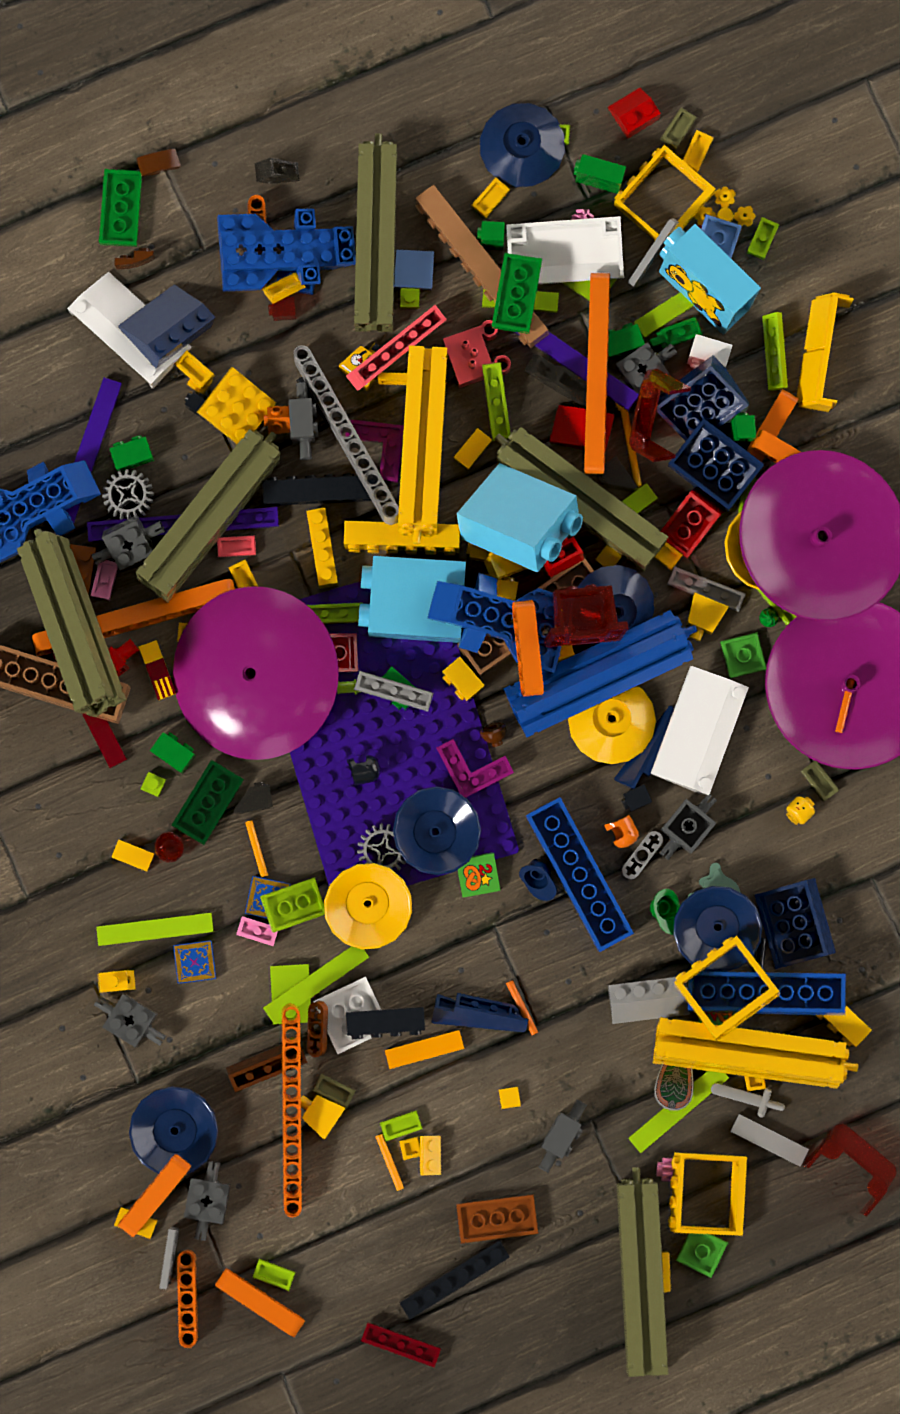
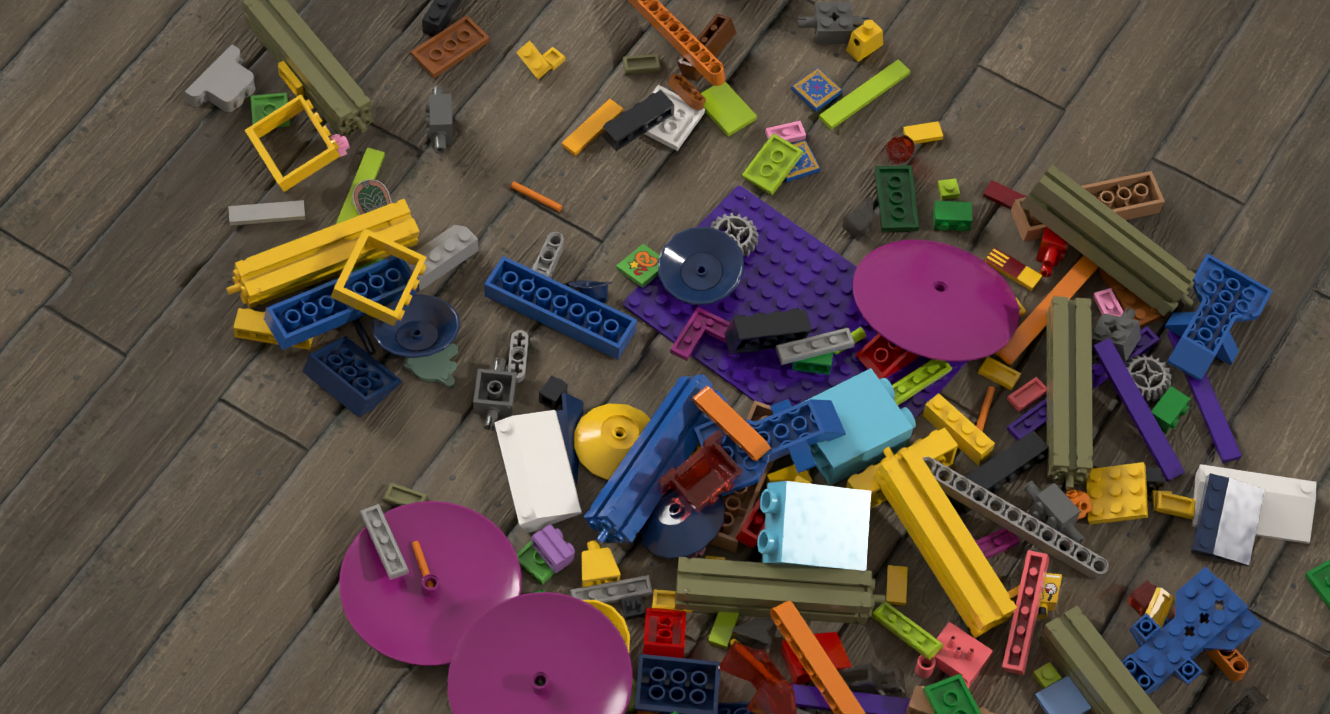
camera: 140 degrees right, 25 degrees down
(140, 258) = (1297, 561): reddish brown slope -> none
(162, 465) = (1138, 409): none -> dark purple tile
(256, 848) = (831, 189): light orange bar -> none
(284, 554) = (985, 408): none -> orange bar
(316, 982) = (712, 123): lime tile -> none
(321, 1114) = (640, 39): yellow torso -> none
(366, 771) = (790, 281): black helmet -> none
(373, 924) = (713, 187): yellow dish -> none
(389, 1162) = (562, 41): light orange bar -> none
(401, 1125) = (571, 69): lime tile -> none
(425, 728) = (766, 330): none -> black brick
(463, 679) = (764, 391): yellow brick -> none
(477, 1013) = (569, 173): dark blue wedge -> none
(494, 733) = (711, 370): reddish brown brick -> none
(509, 1097) = (500, 131): yellow tile -> none
(564, 926) = (549, 250): none -> light grey piece
(626, 827) = (546, 362): orange helmet -> none
(664, 909) = (471, 320): green piece -> none
(698, 565) = (632, 607): none -> black tile
(727, 1306) = (223, 83): none -> light grey brick
(733, 650) = (553, 548): none -> medium lavender brick
(749, 1098) = (291, 235): light grey sword -> none
(800, 810) = (406, 461): yellow head -> none
(844, 1139) = (183, 237): clear red windscreen -> none
(868, 740) = (384, 542): none -> light grey tile

